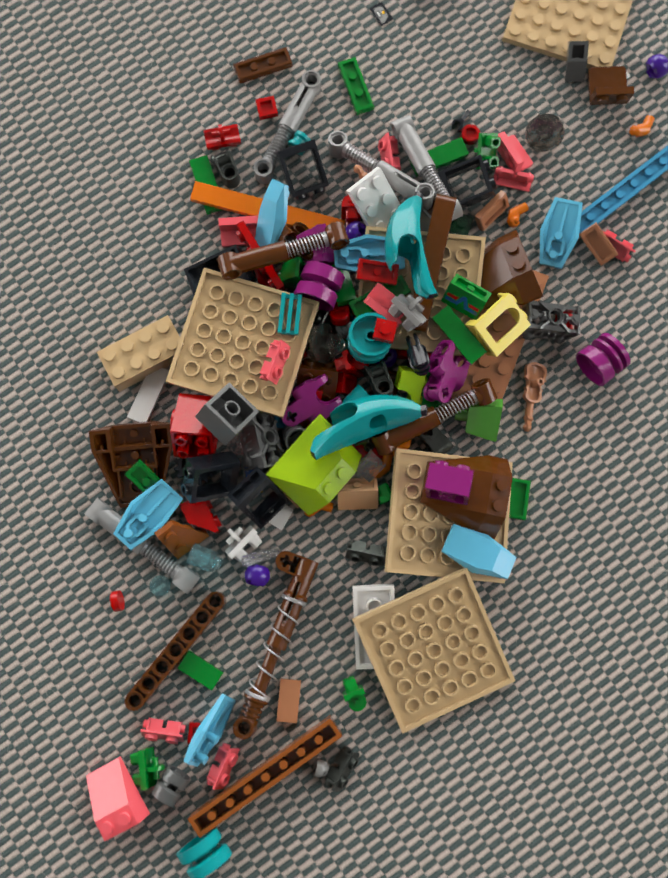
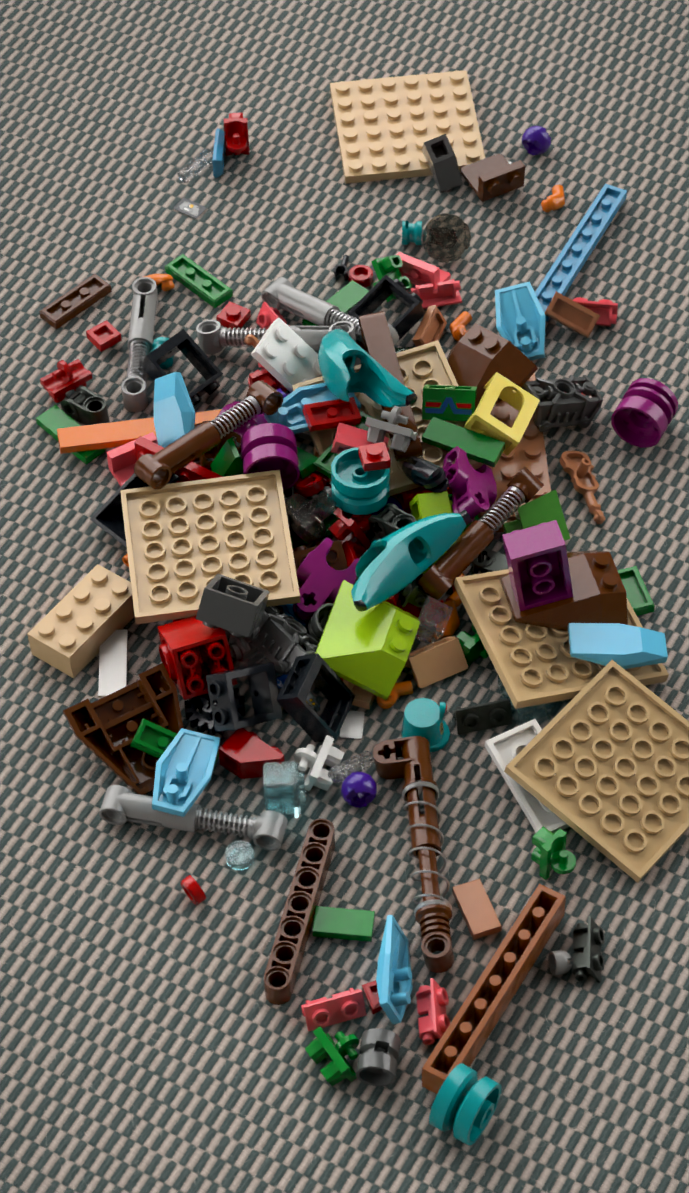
camera: 20 degrees left, 30 degrees down
(115, 799) = (313, 1102): coral slope -> none
(180, 538) = (236, 785): dark orange wing -> none
(273, 370) = (259, 531): coral hinge -> none
(291, 297) = (246, 475): teal tile -> none
(324, 546) = (425, 719): none -> teal hat
(327, 72) = (164, 280): none -> orange arm
(364, 130) = (233, 316): none -> red plate
(524, 113) = (411, 232): none -> teal wheel

